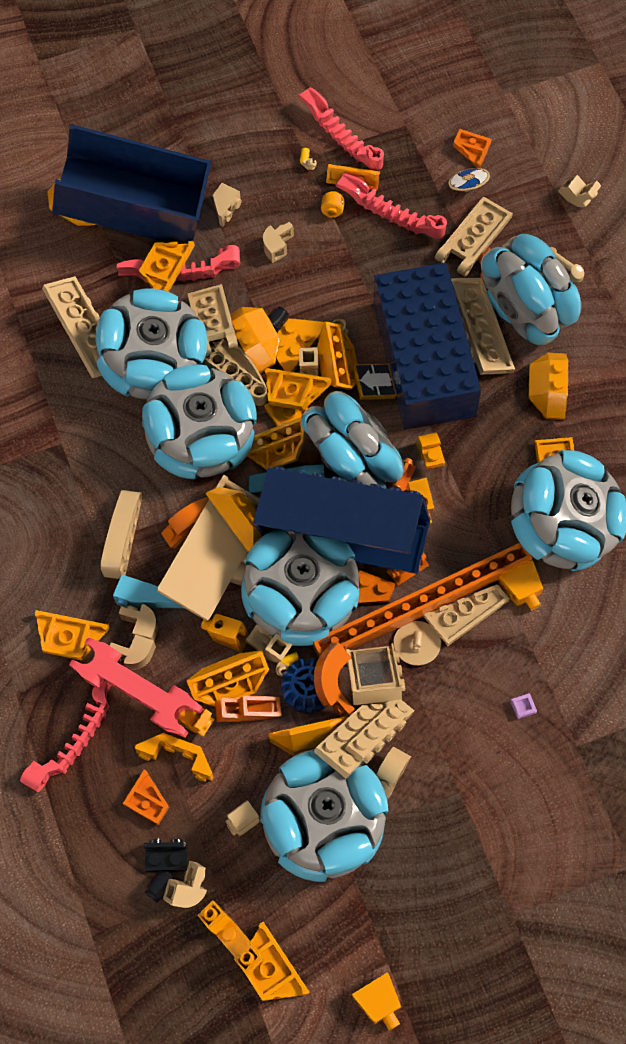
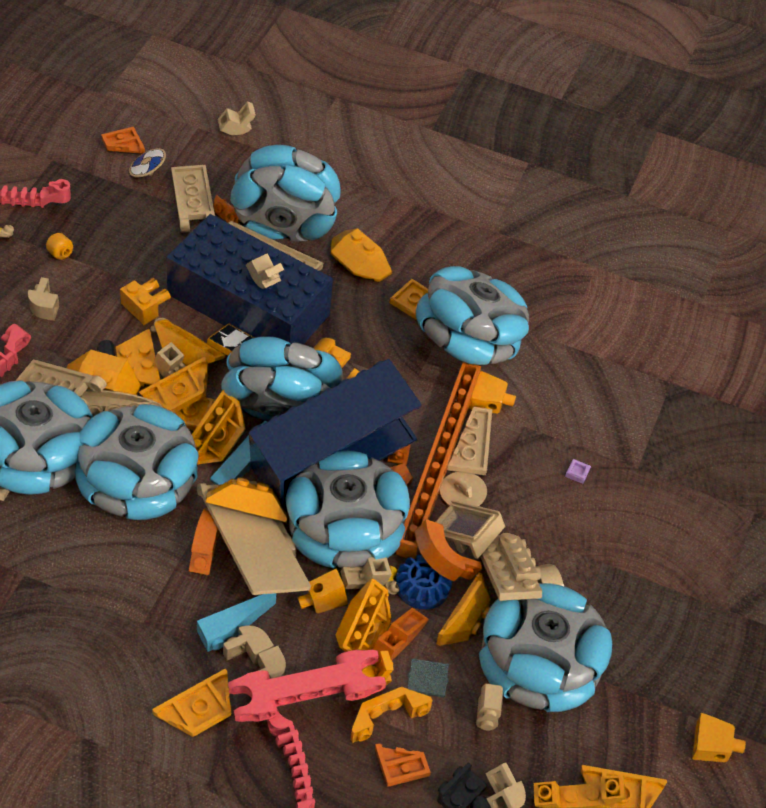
camera: 55 degrees left, 15 degrees down
(121, 534) = (162, 595): tan beam -> none
(235, 757) = (428, 677): none -> clear light blue piece
(335, 173) = (54, 217): light orange hinge -> none
(340, 295) = (140, 302): none -> light orange brick
(425, 344) = (264, 272): none -> tan brick
(431, 225) = (158, 208): coral piece -> none

